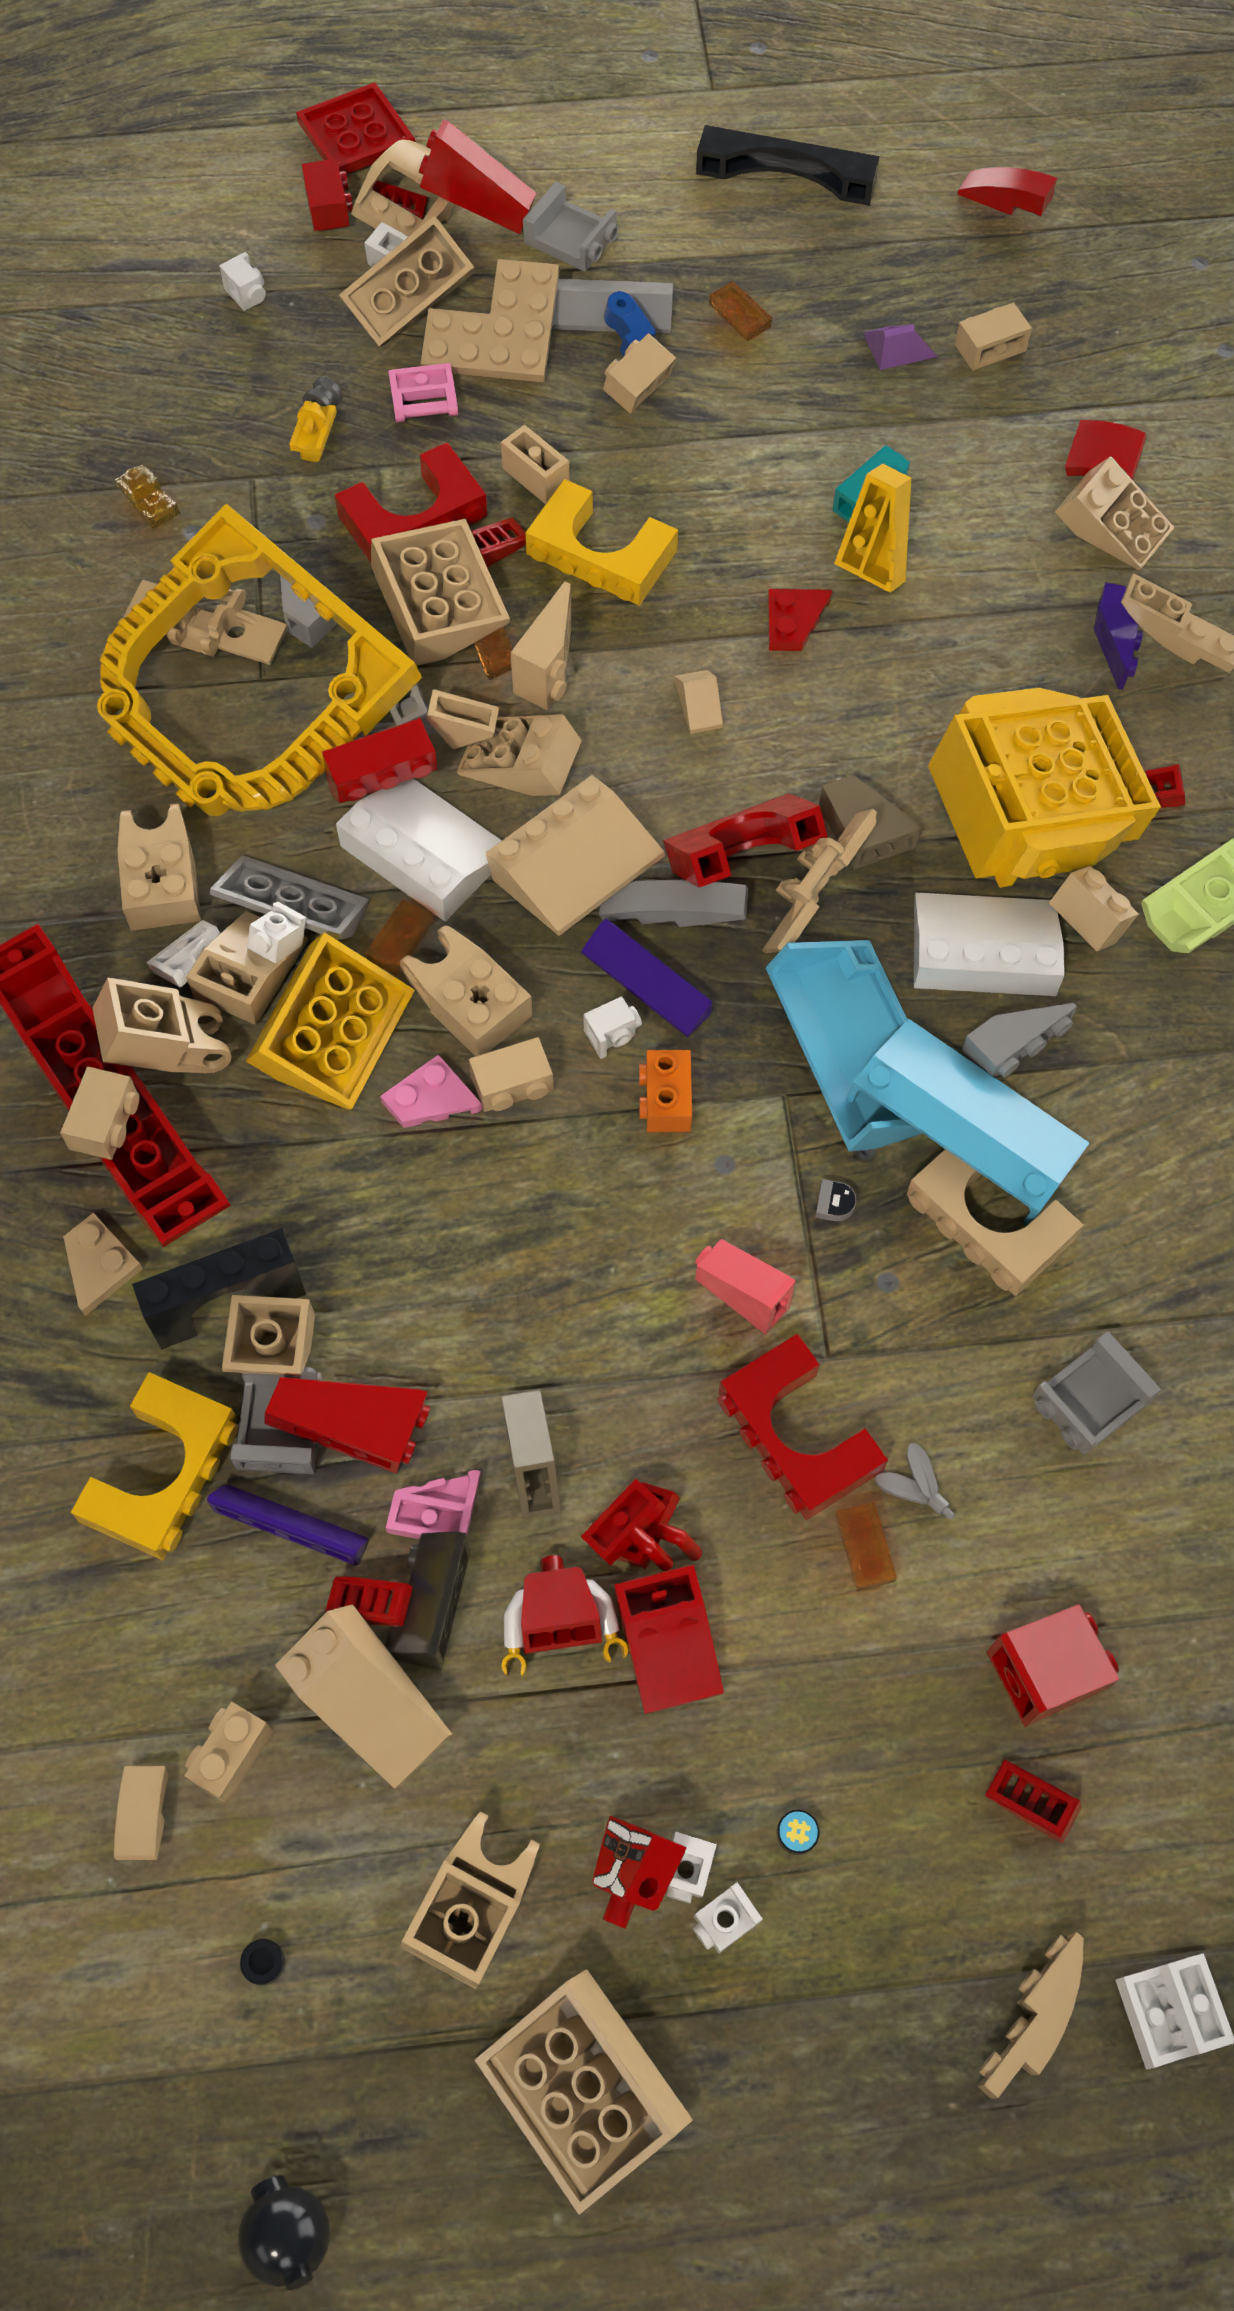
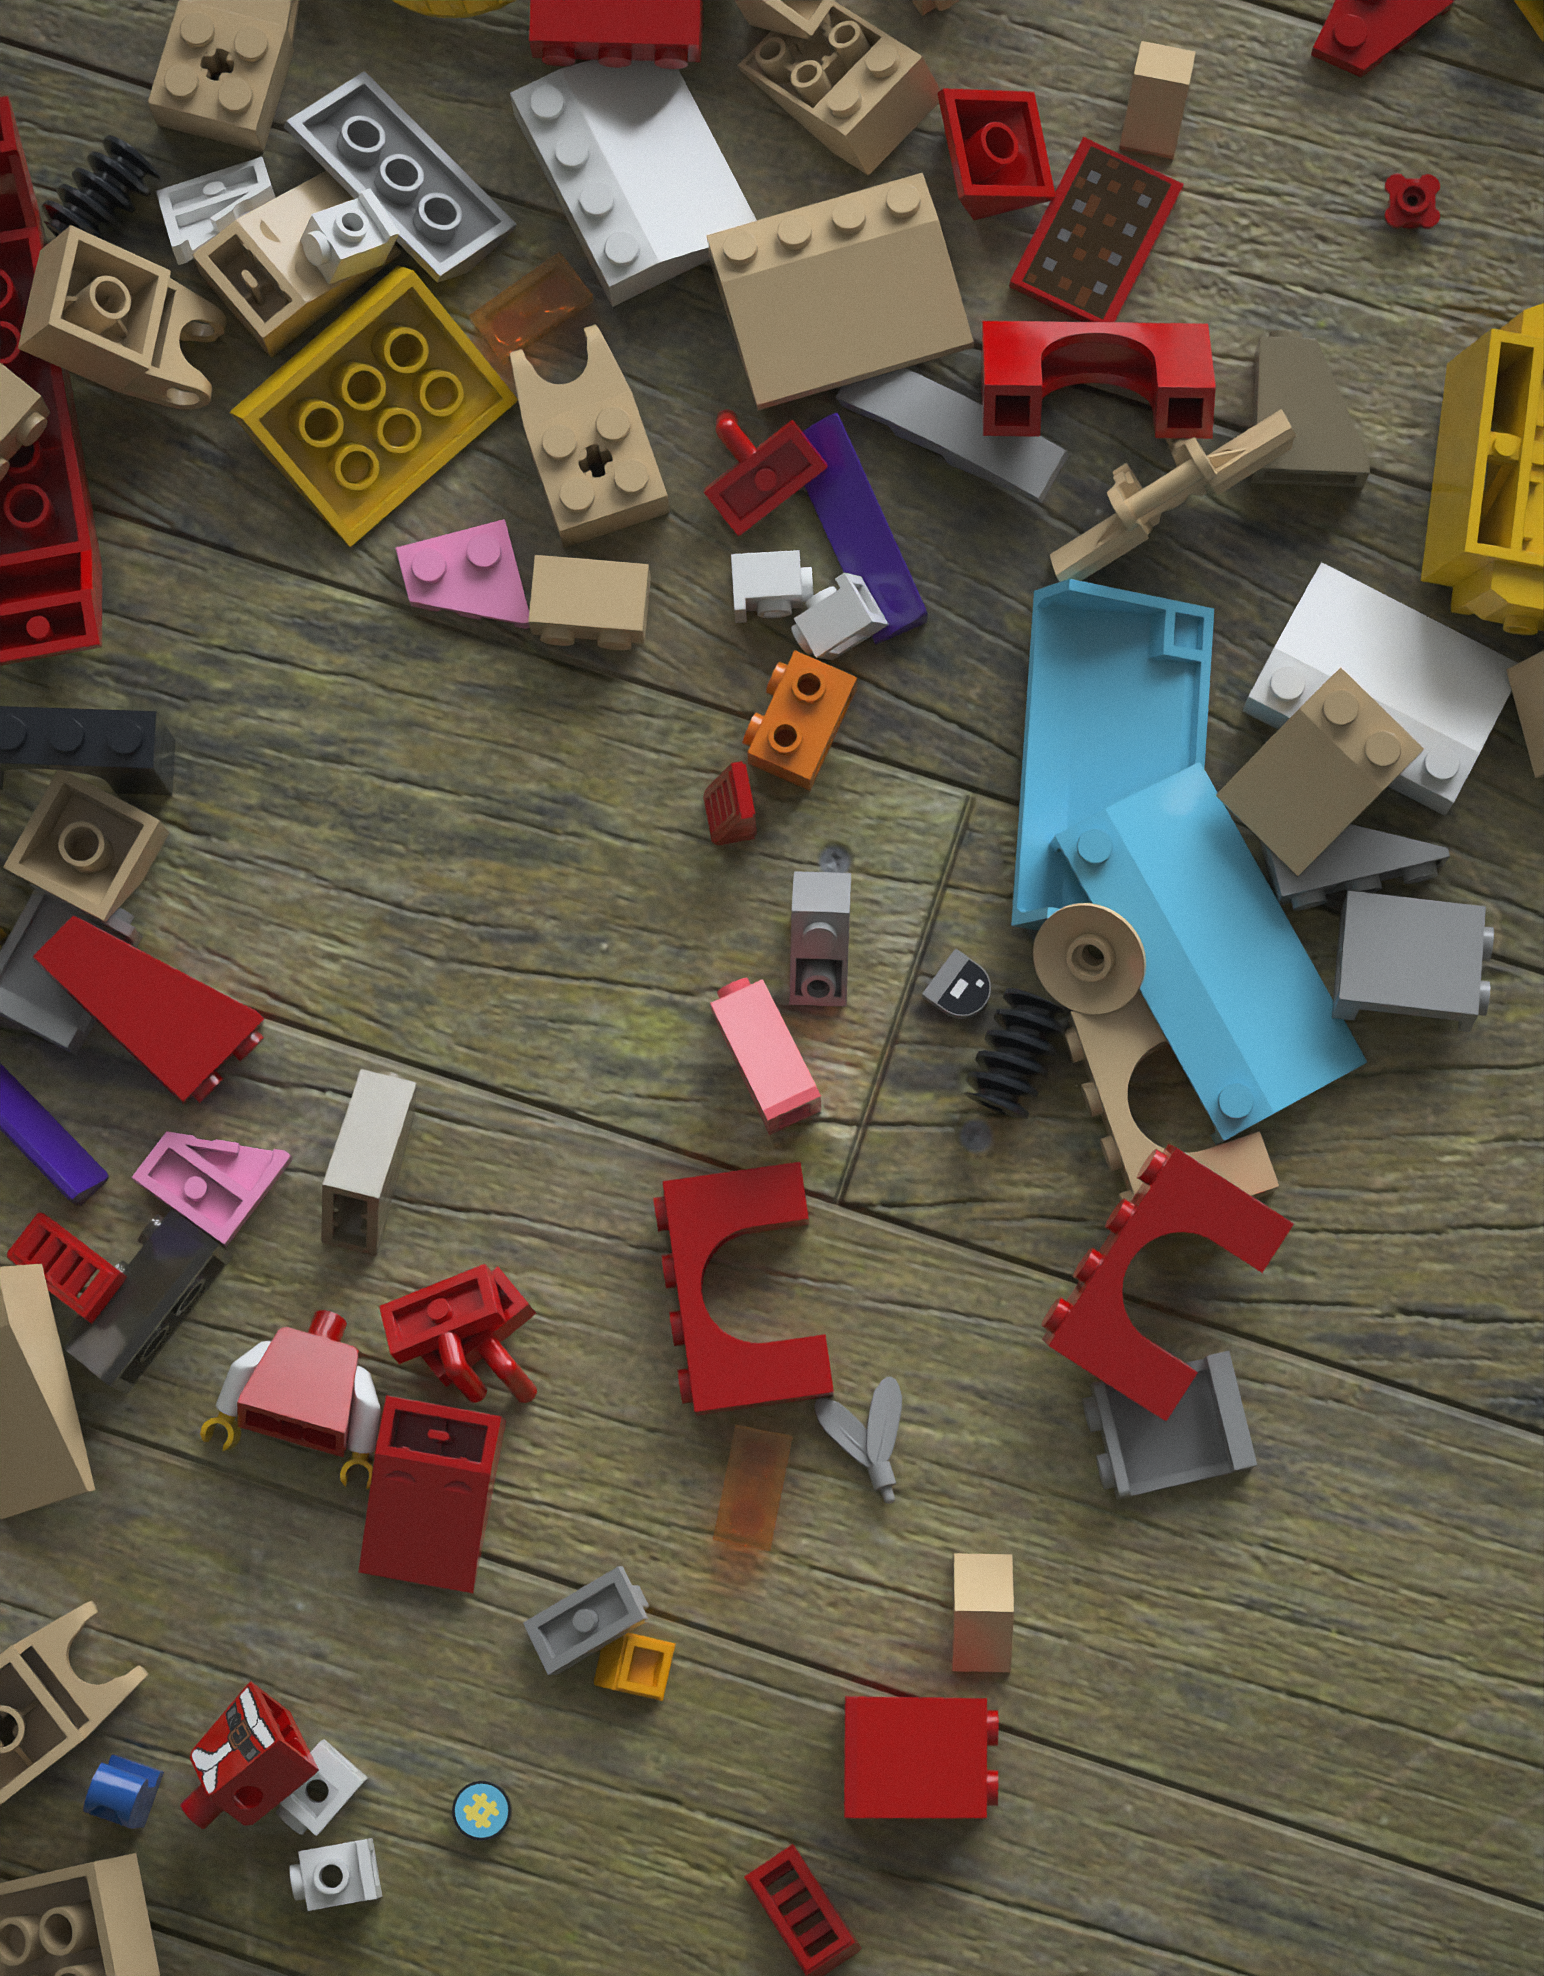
camera: 30 degrees right, 15 degrees up
(114, 961) = (100, 191): none -> black piece
(560, 1931) = (123, 1792): none -> blue leg
(578, 968) = (763, 474): none -> red plate
(624, 754) = (996, 150): none -> red slope
(652, 1150) = (730, 806): none -> red slope
(662, 1026) = (838, 619): none -> white brick
(700, 777) = (1096, 234): none -> tile
(741, 1205) = (819, 938): none -> light grey slope
(806, 1674) = (587, 1621): none -> light grey plate
(846, 1691) = (635, 1666): none -> light orange slope
(862, 703) = (1402, 214): none -> red plate
(887, 1219) = (1015, 1053): none -> black piece
(914, 1159) = (1076, 976): none -> tan dish
(985, 983) = (1319, 771): none -> tan slope
(1022, 1346) = (1173, 1198): none -> red arch
(1044, 1558) = (982, 1612): none -> tan slope
(1084, 1071) = (1411, 958): none -> light grey panel

